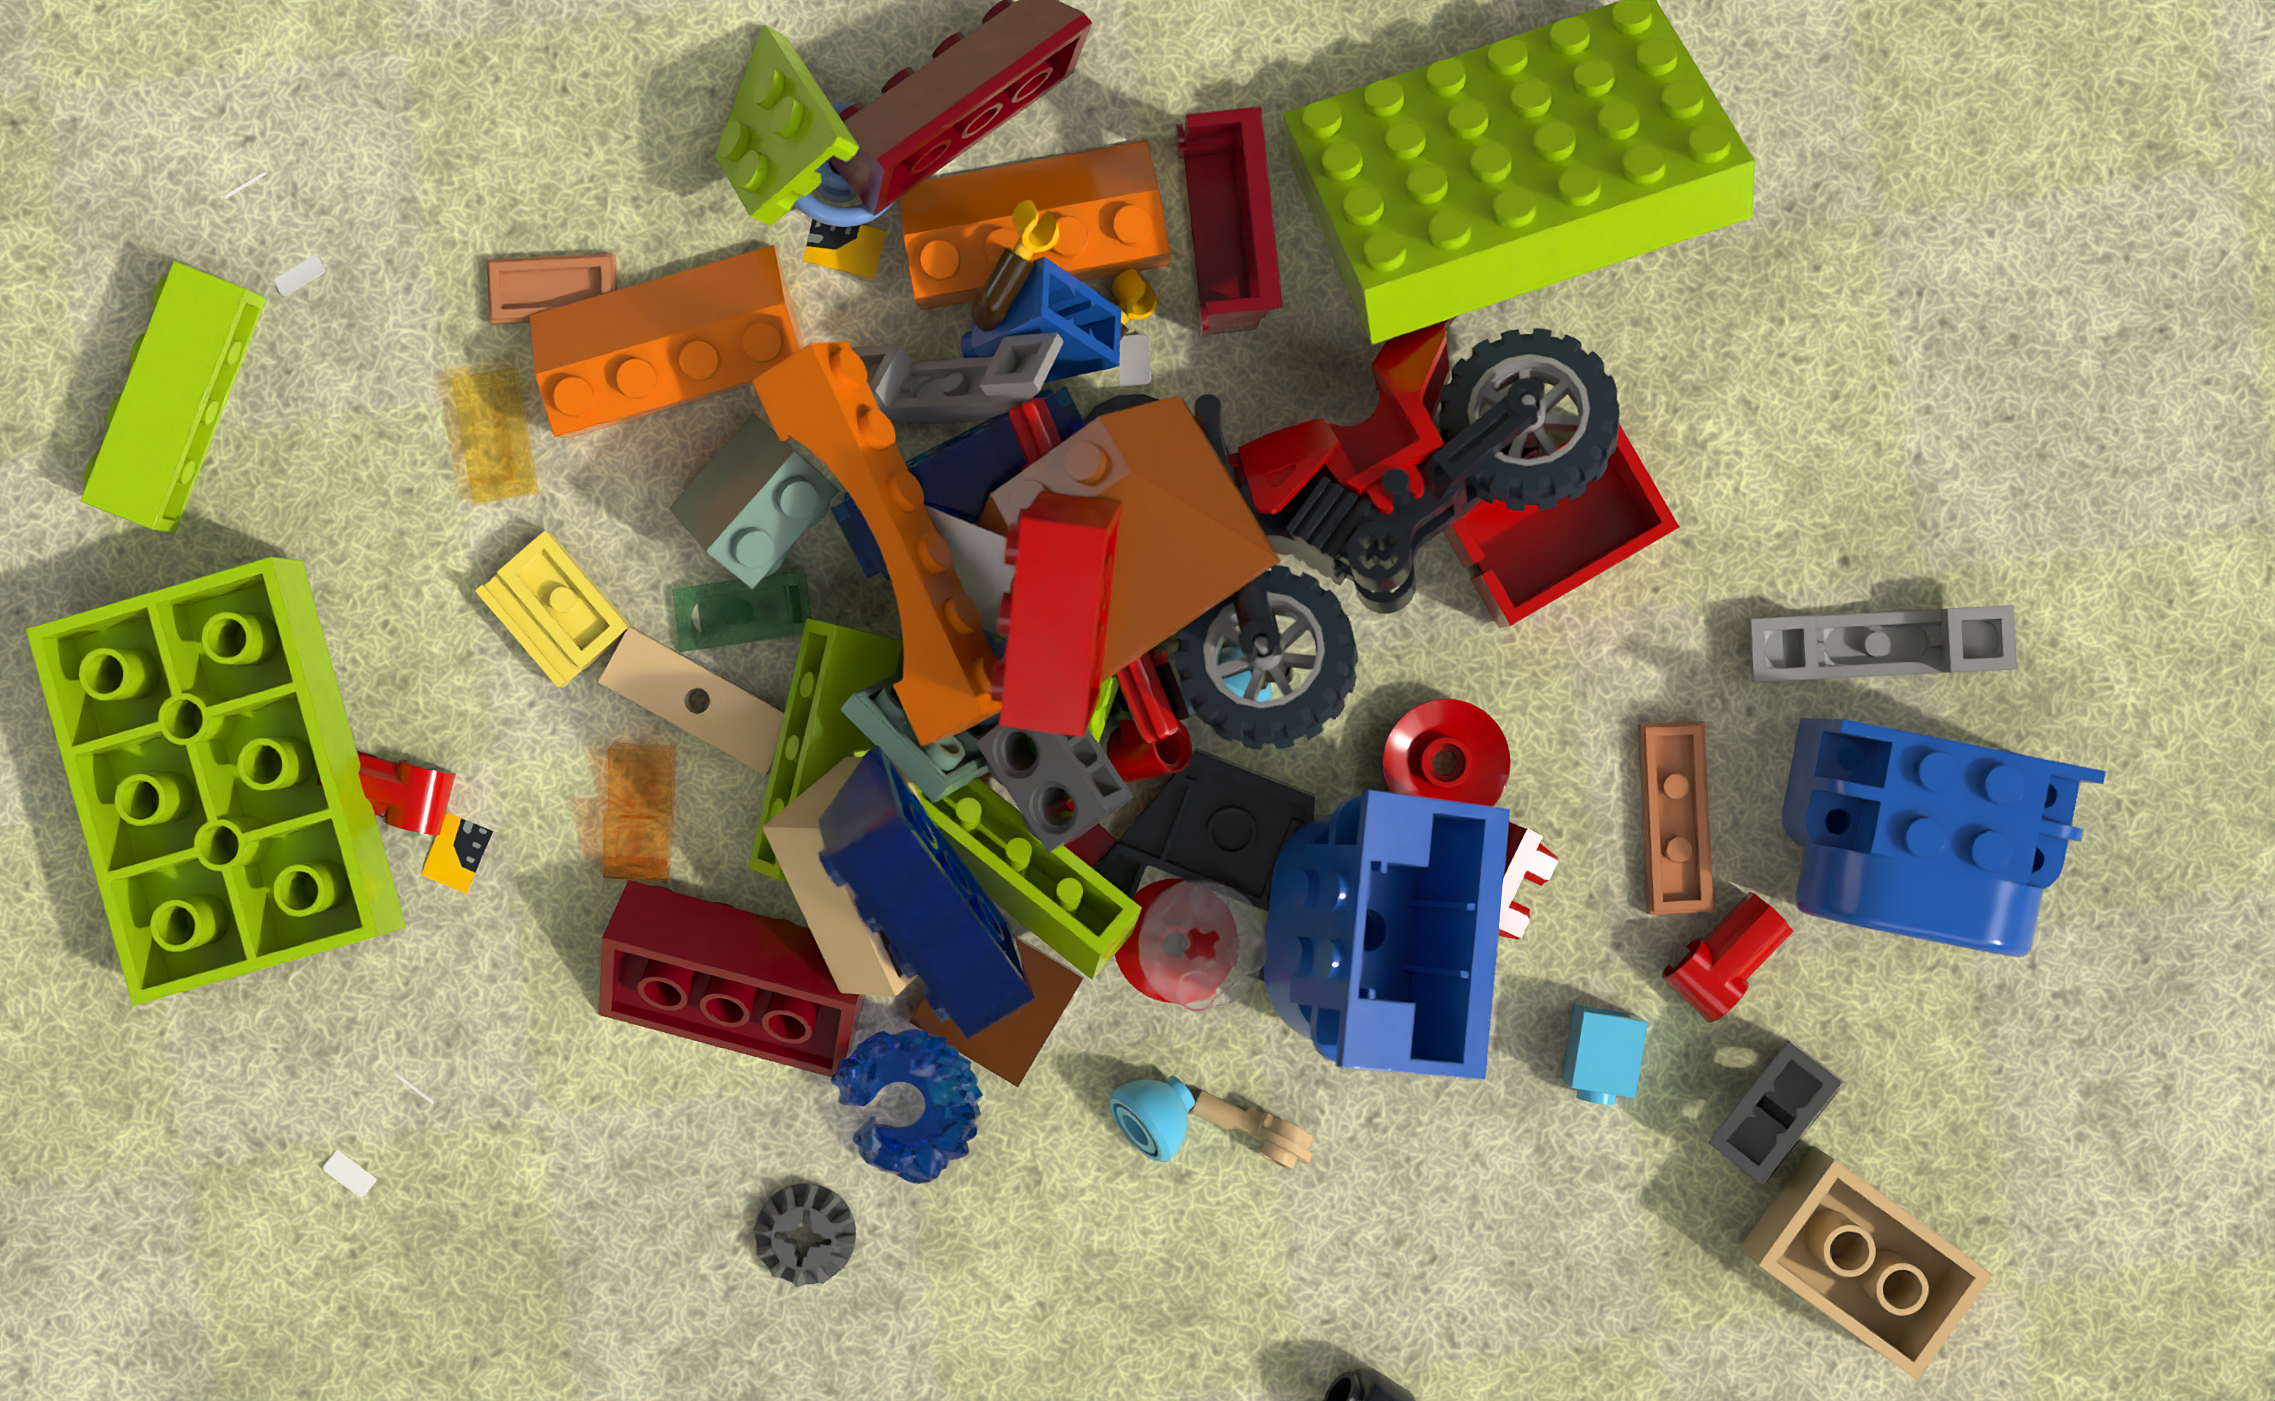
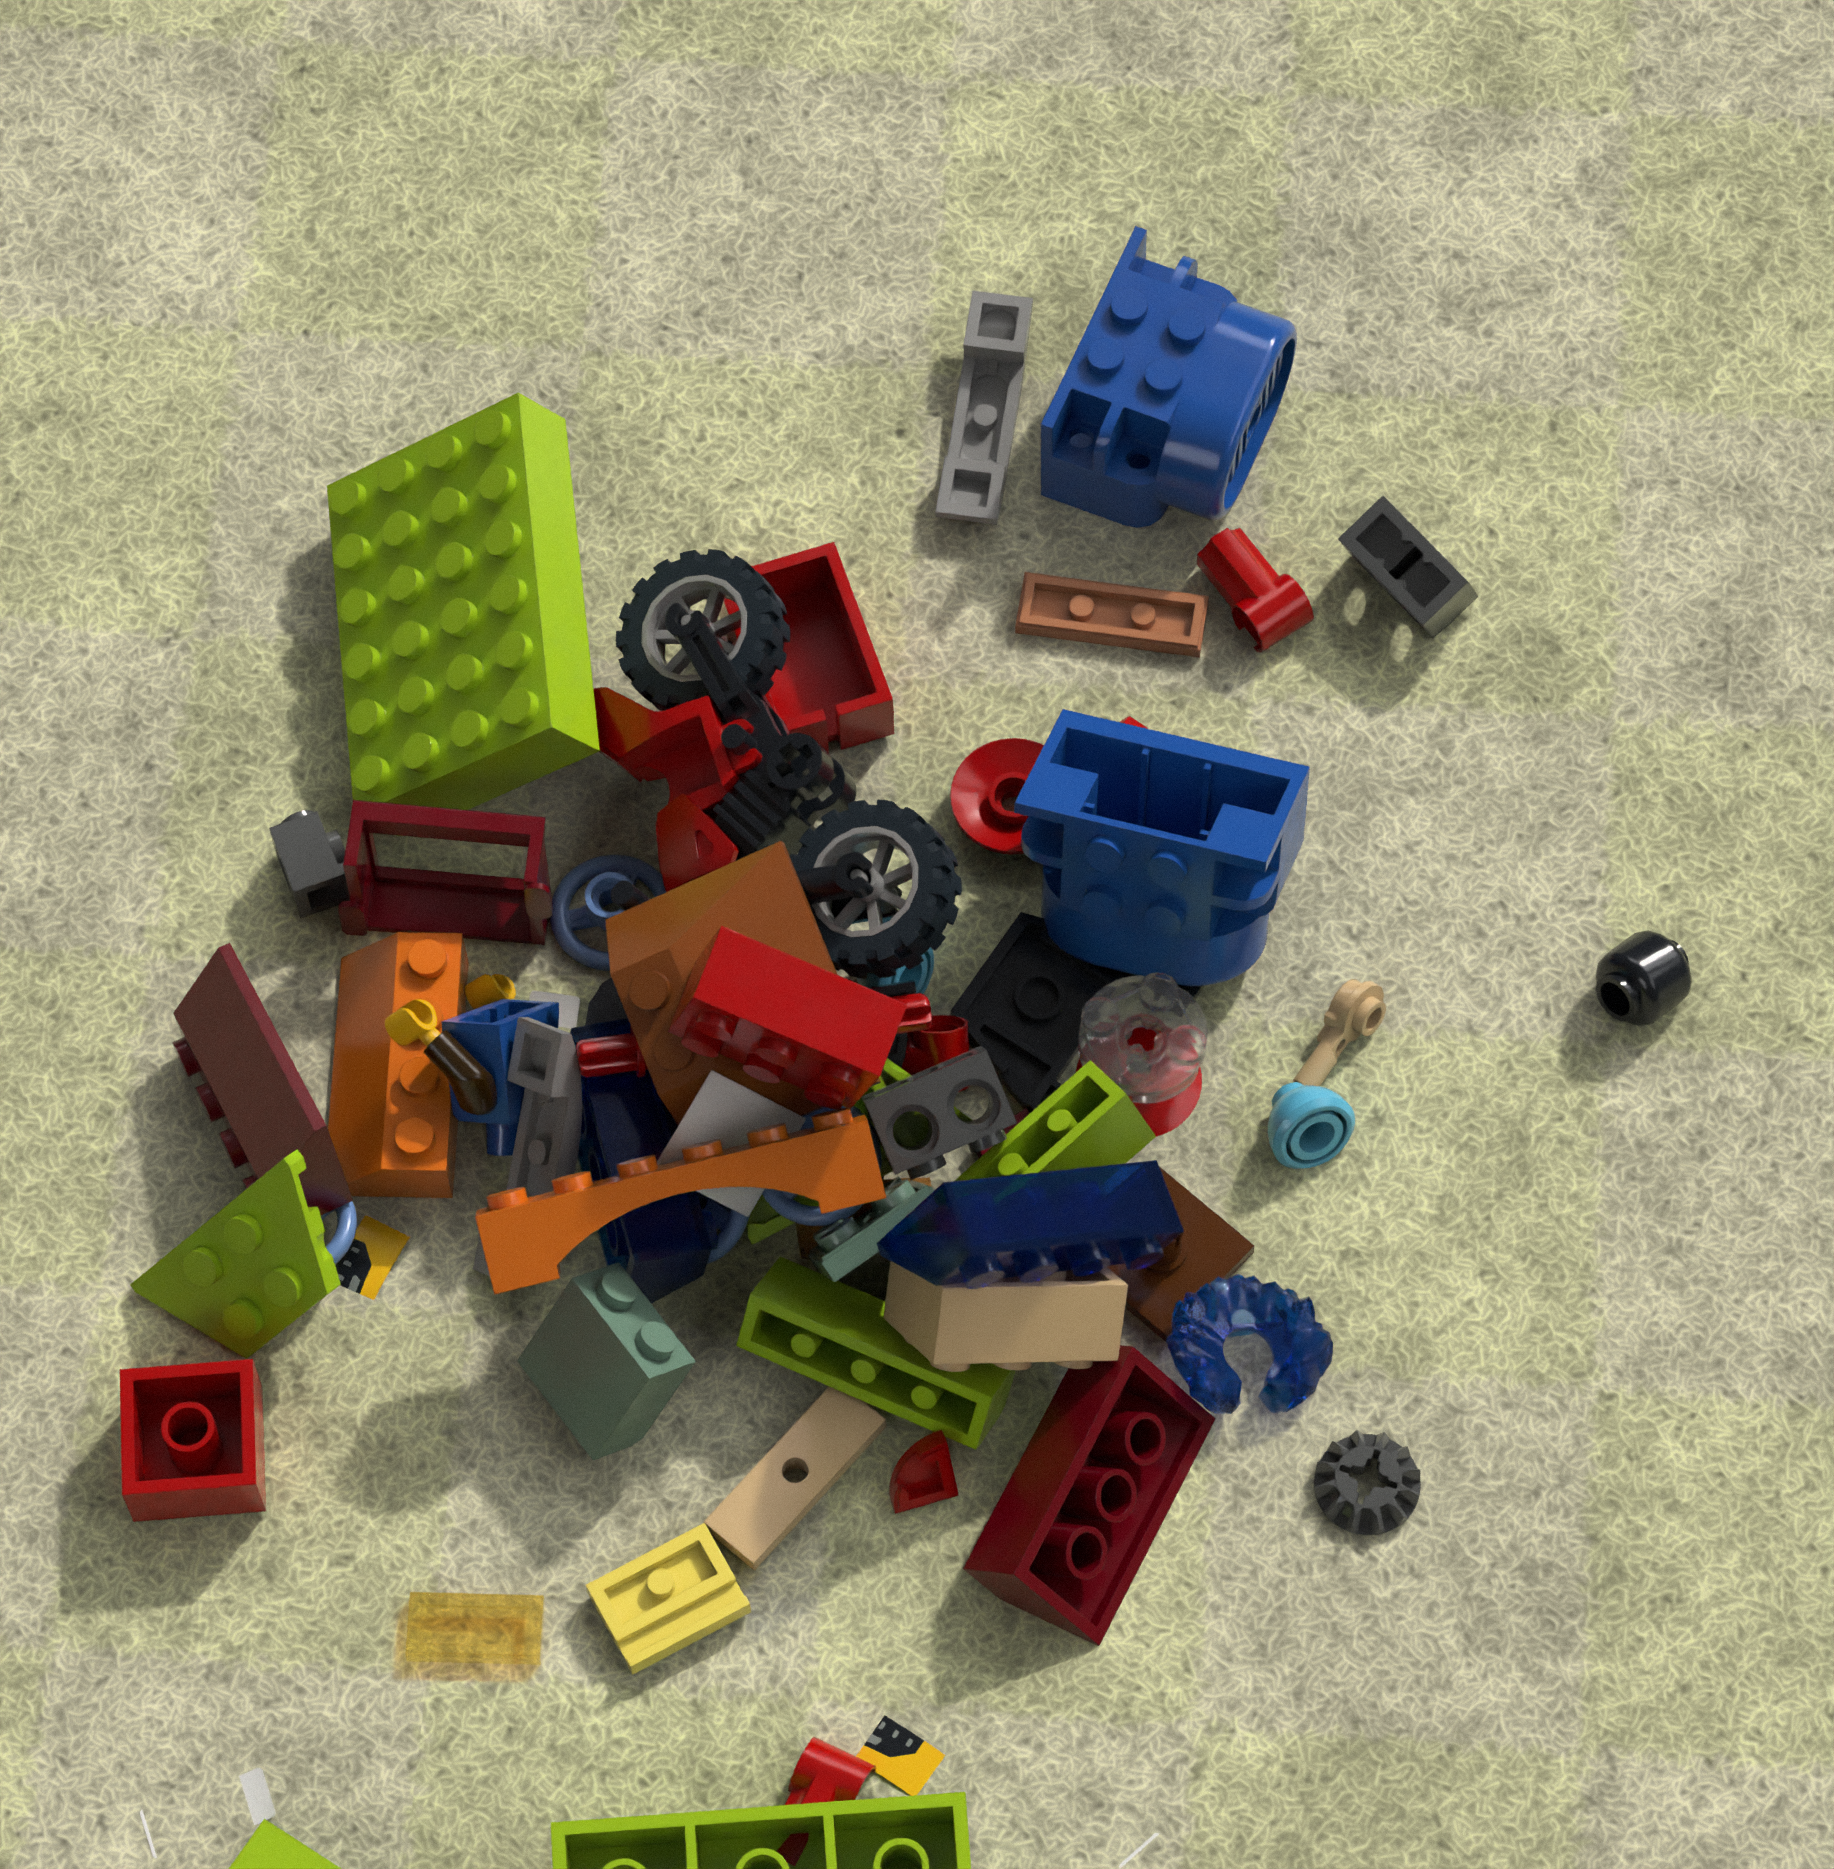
camera: 75 degrees left, 25 degrees down
(543, 283) = (338, 1543): nougat tile -> none
(603, 124) = (192, 1440): none -> red brick
(639, 811) = (895, 1560): clear orange slope -> none
(663, 342) = (424, 1429): orange slope -> none
(720, 820) = (923, 1474): none -> red tile
(742, 615) = (714, 1421): clear green slope -> none
(1230, 349) = (605, 873): none -> medium blue piece
(1235, 77) = (310, 862): none -> dark grey brick
(1604, 1054) = (1324, 710): medium azure brick -> none
(1865, 1262) = (1564, 520): tan brick -> none

